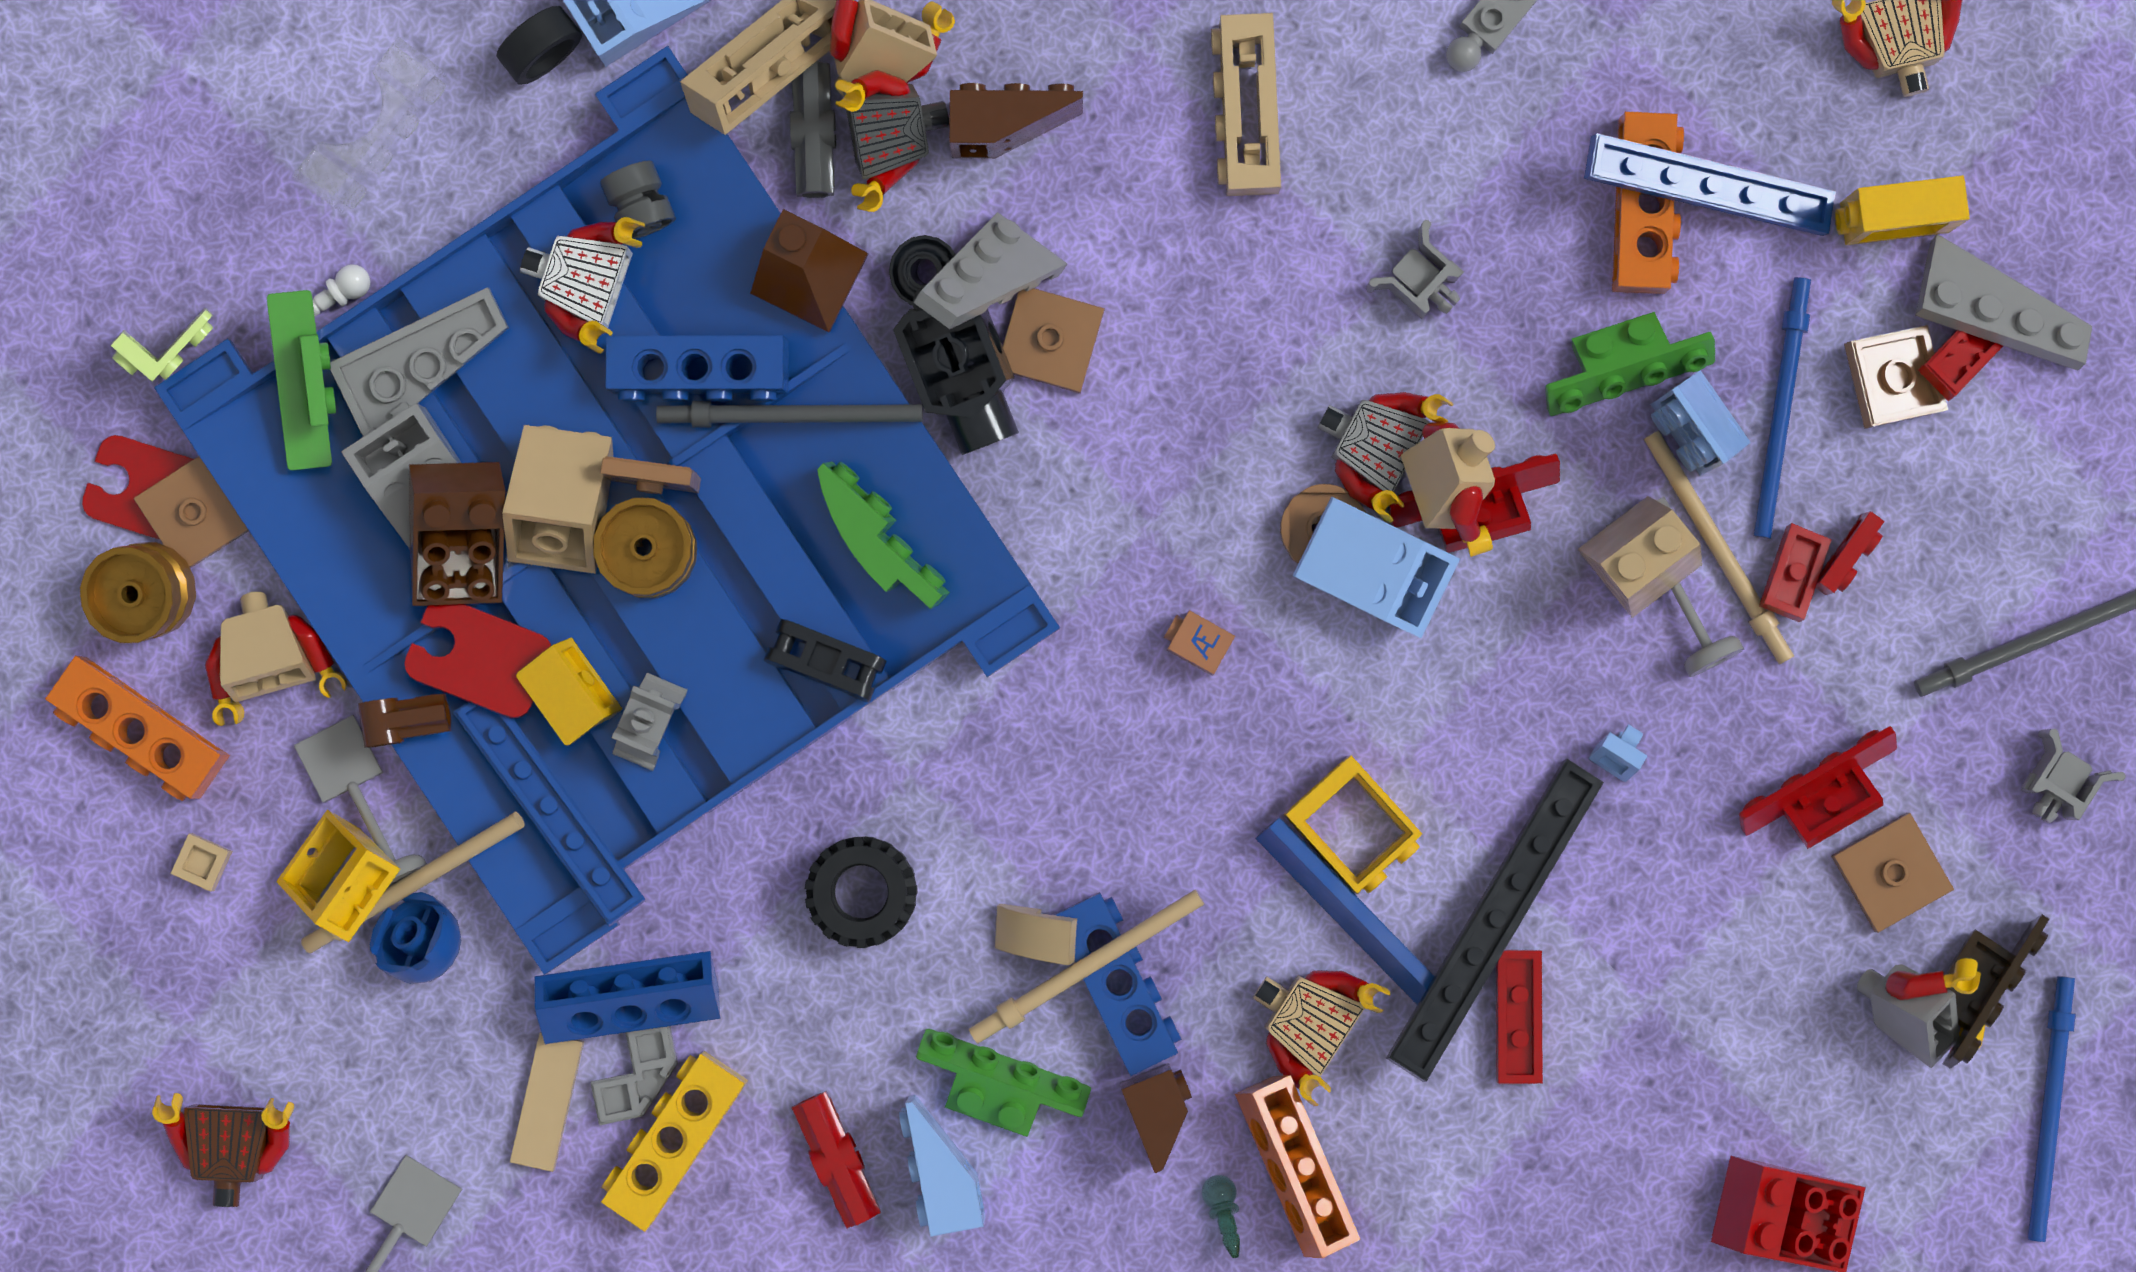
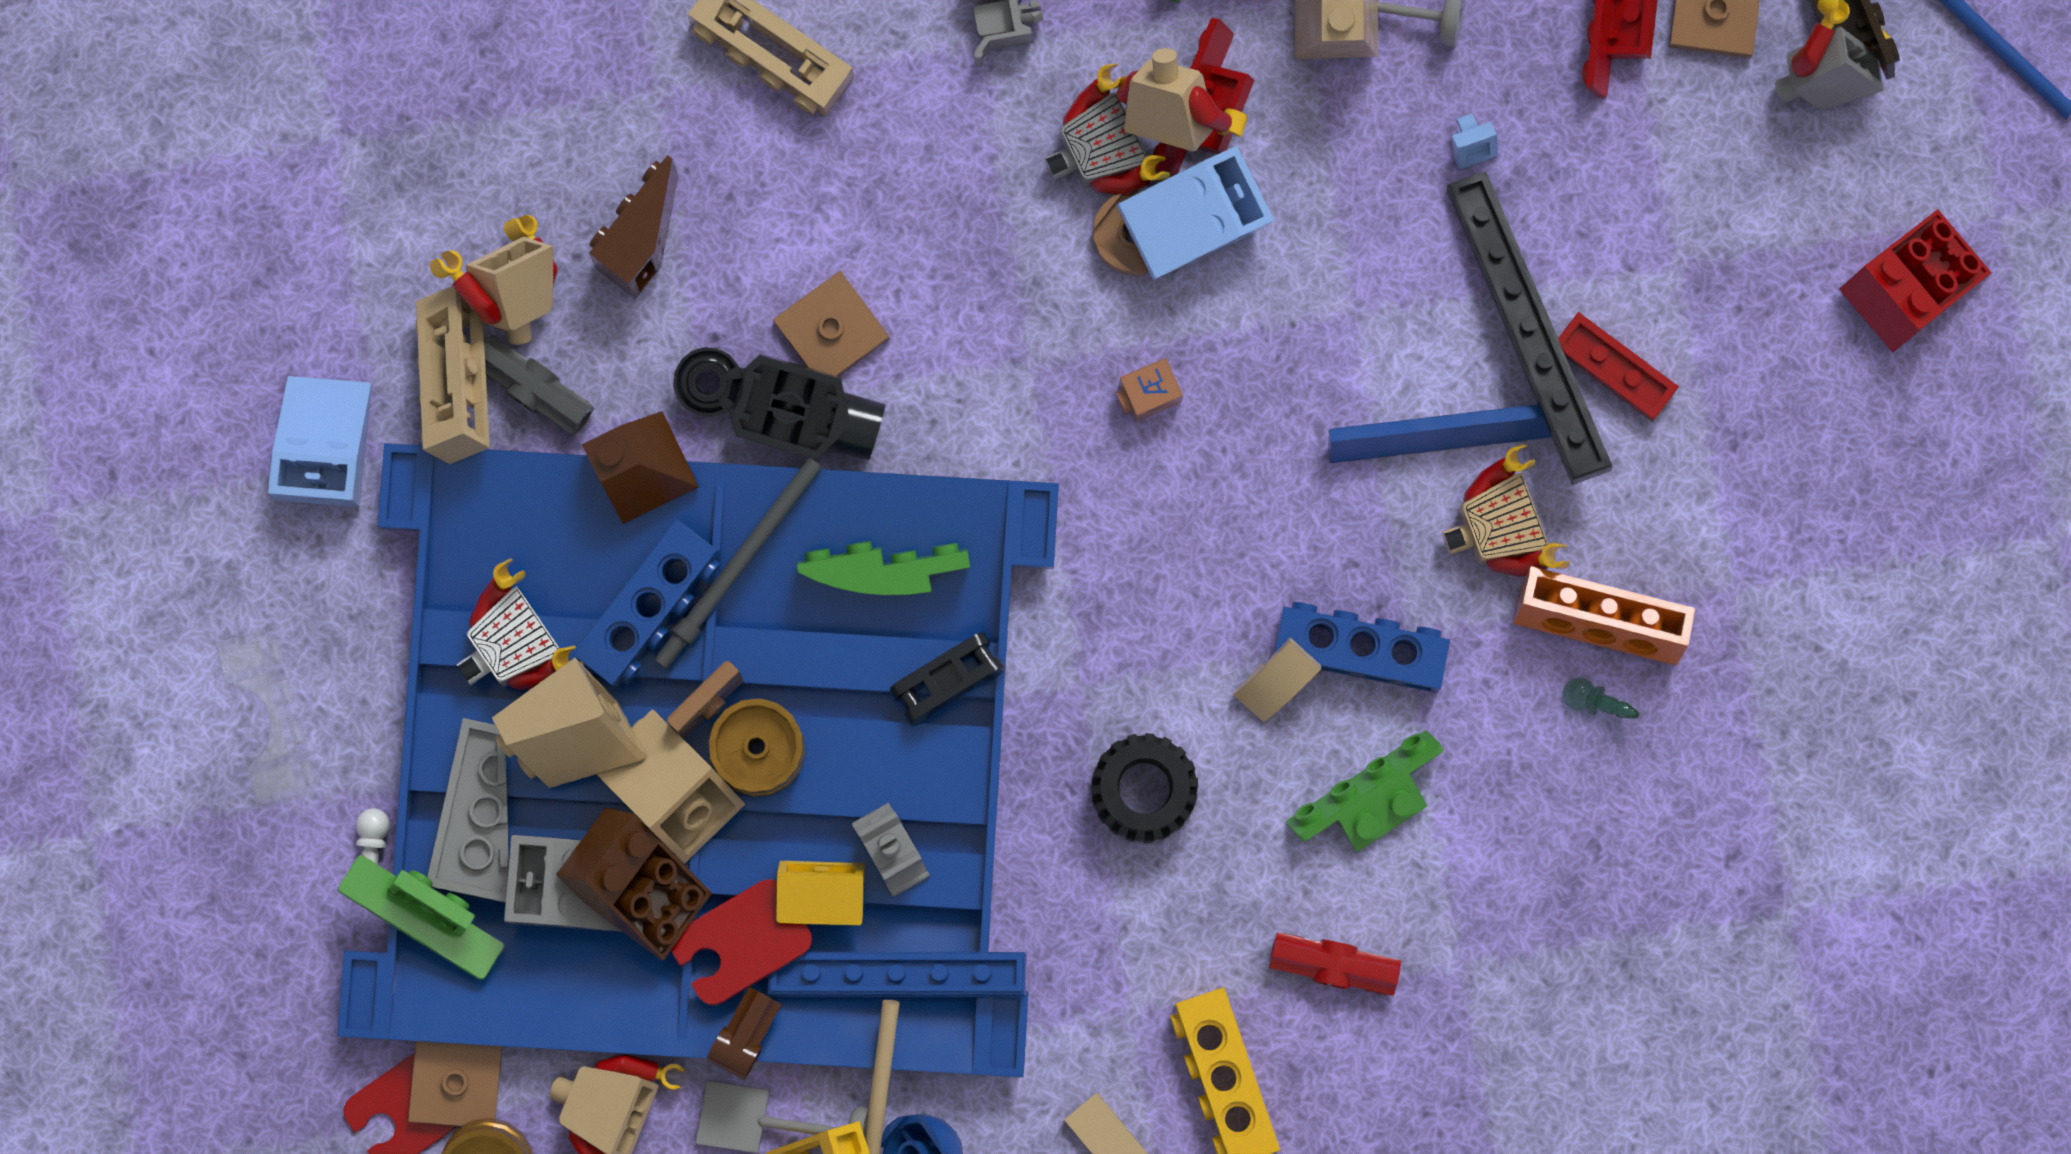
camera: 55 degrees left, 5 degrees down
(135, 357) = (301, 1032): yellowish green bracket -> none
(539, 45) = (305, 541): black tyre -> none
(540, 380) = (567, 728): none -> tan slope
(627, 997) = (1089, 1028): blue brick -> none
(631, 1094) = (1154, 1051): light grey tile -> none
(637, 196) = (479, 553): dark grey wheel -> none
(886, 131) = (579, 329): torso -> none
(948, 1182) = (1414, 887): light blue slope -> none
(988, 271) = (747, 331): light grey wing -> none
(1012, 1011) = (1323, 740): tan bar -> none
(1157, 1110) = (1483, 688): reddish brown slope -> none
(1400, 849) = (1334, 385): yellow window -> none

